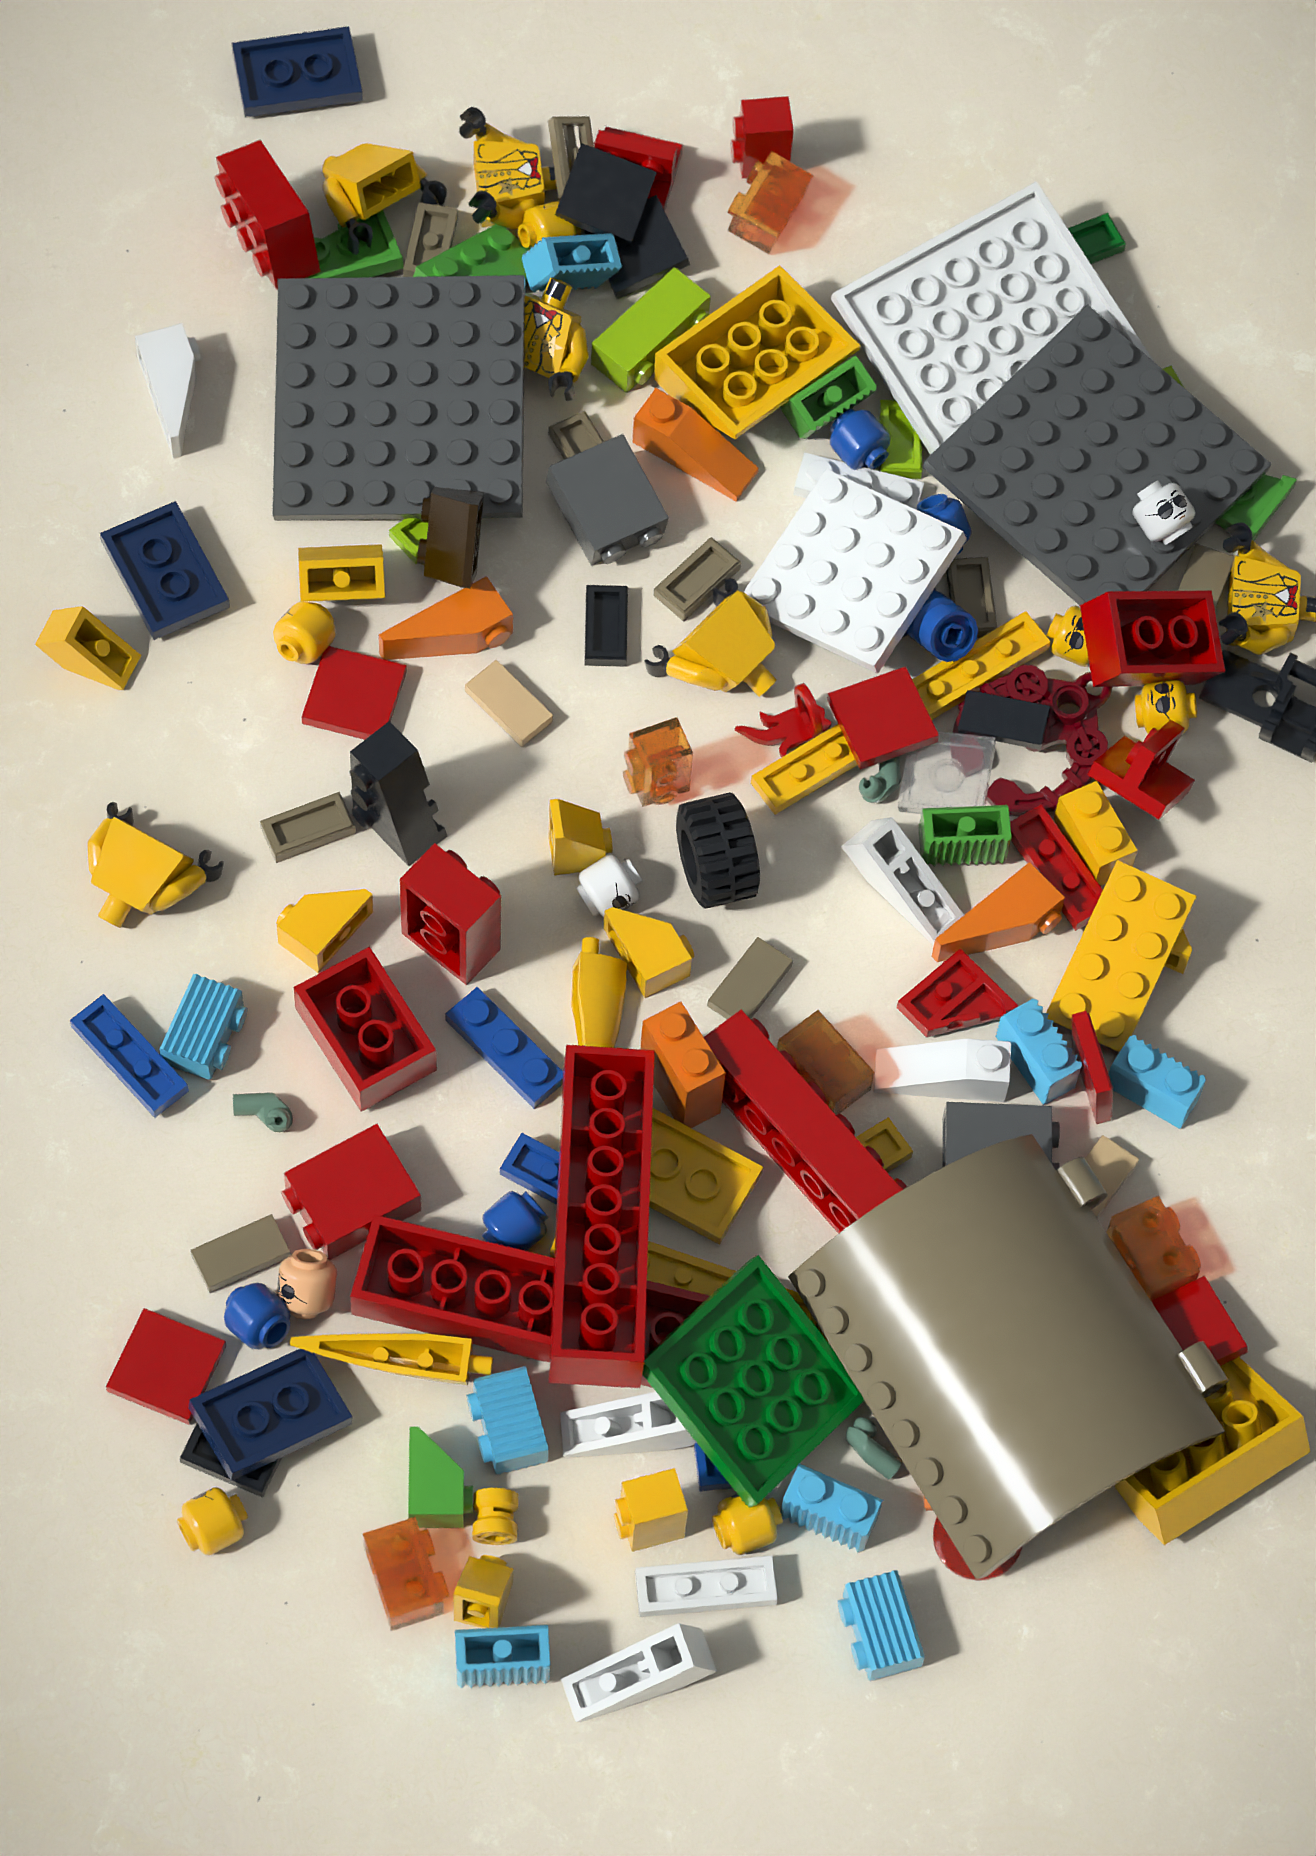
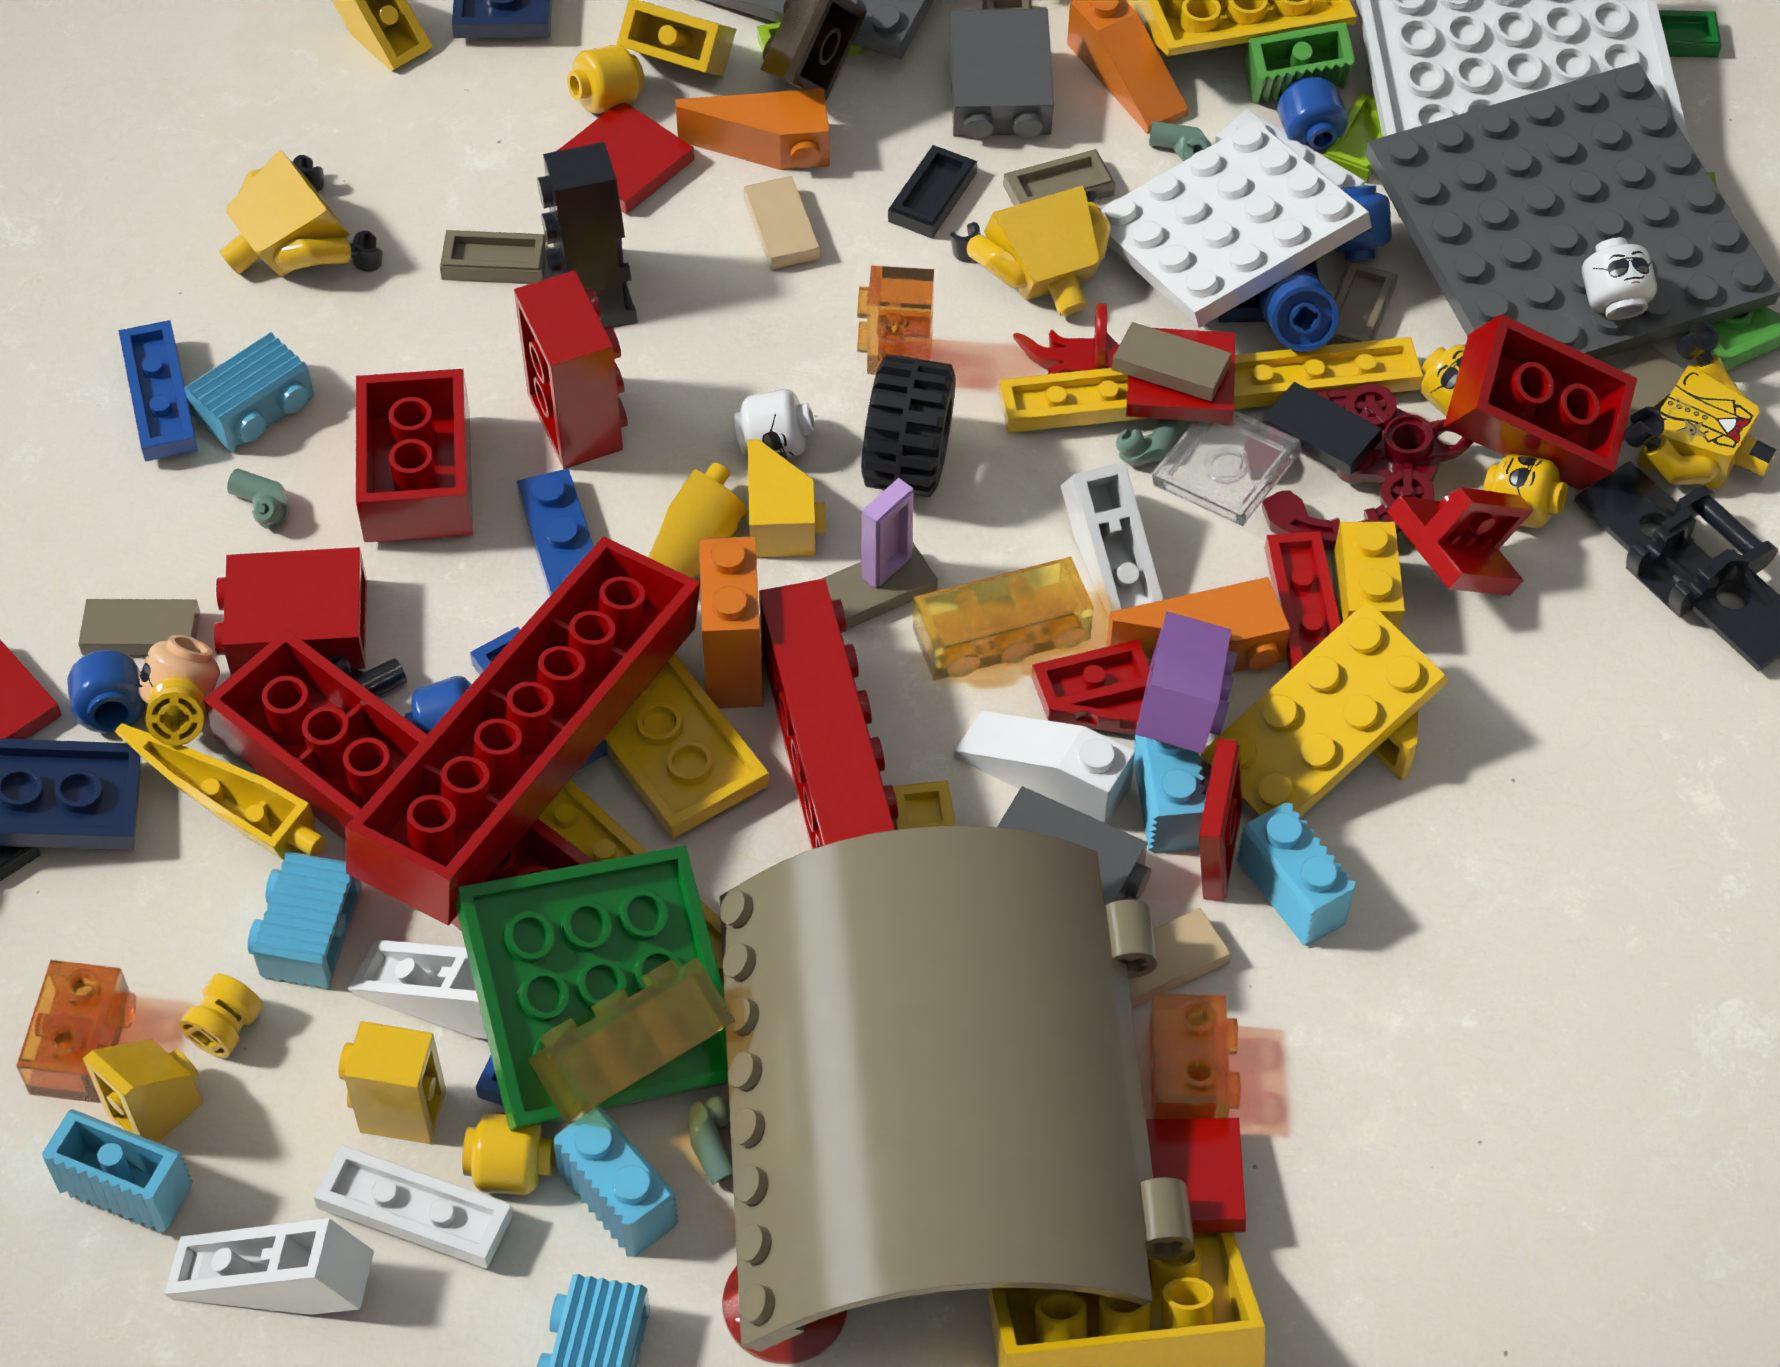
camera: 30 degrees right, 10 degrees down
(322, 924) = (447, 339): yellow slope -> none
(330, 1311) = (178, 698): none -> yellow wheel
(435, 1485) = (171, 951): bright green slope -> none
(439, 1218) = (376, 680): none -> black arm
(576, 837) = (761, 354): yellow slope -> none
(755, 948) = (887, 533): none -> lavender tile
(773, 499) = (1181, 138): none -> sand green arm
(801, 1409) = (629, 1037): none -> clear yellow brick
(828, 1061) = (904, 694): clear orange brick -> none
(859, 971) = (1002, 618): none -> clear yellow brick
(876, 714) = (1171, 361): none -> dark tan tile
(964, 834) = (1208, 524): bright green brick -> none
(1022, 976) = (1187, 683): none -> medium lavender brick

